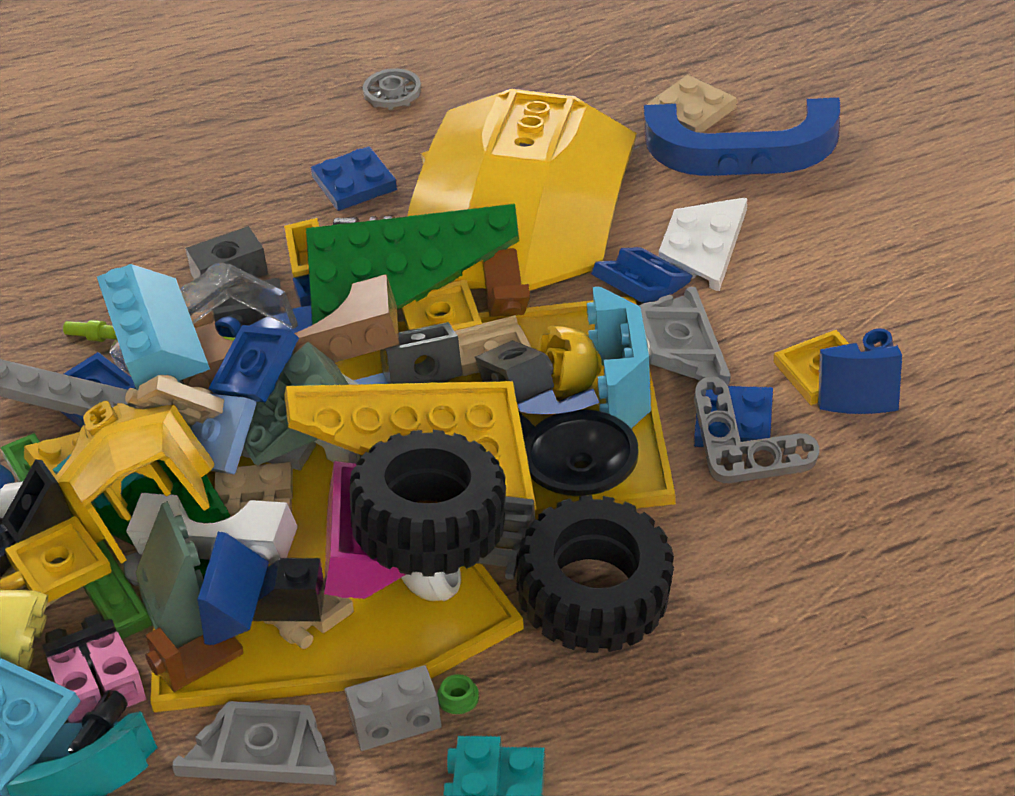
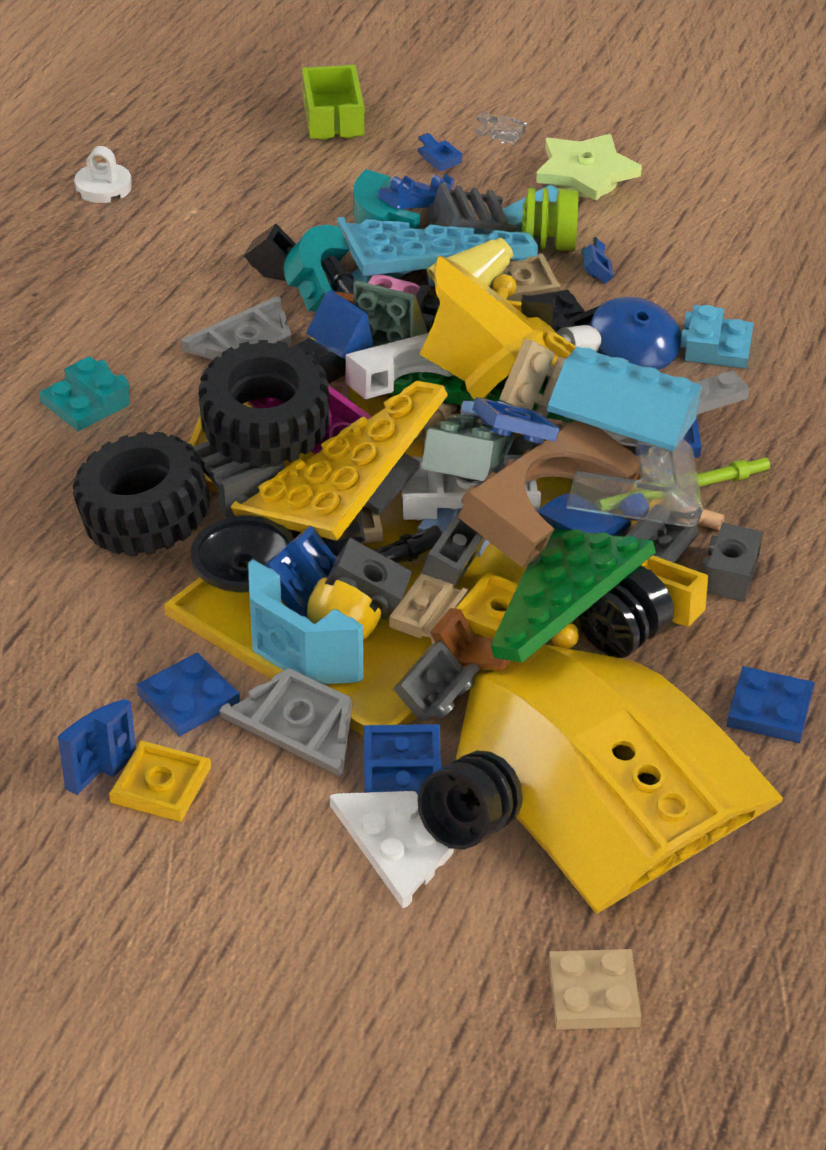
camera: 130 degrees right, 0 degrees up
(393, 707) = (181, 383): light grey brick -> none
(458, 694) = (165, 418): bright green plate -> none
(559, 284) = (435, 682): none -> dark grey bracket
(647, 191) = (470, 799): none -> black wheel
(733, 448) = (142, 652): light grey beam -> none
(743, 151) = (512, 911): blue arch -> none
(875, 336) = (127, 817): blue hinge -> none

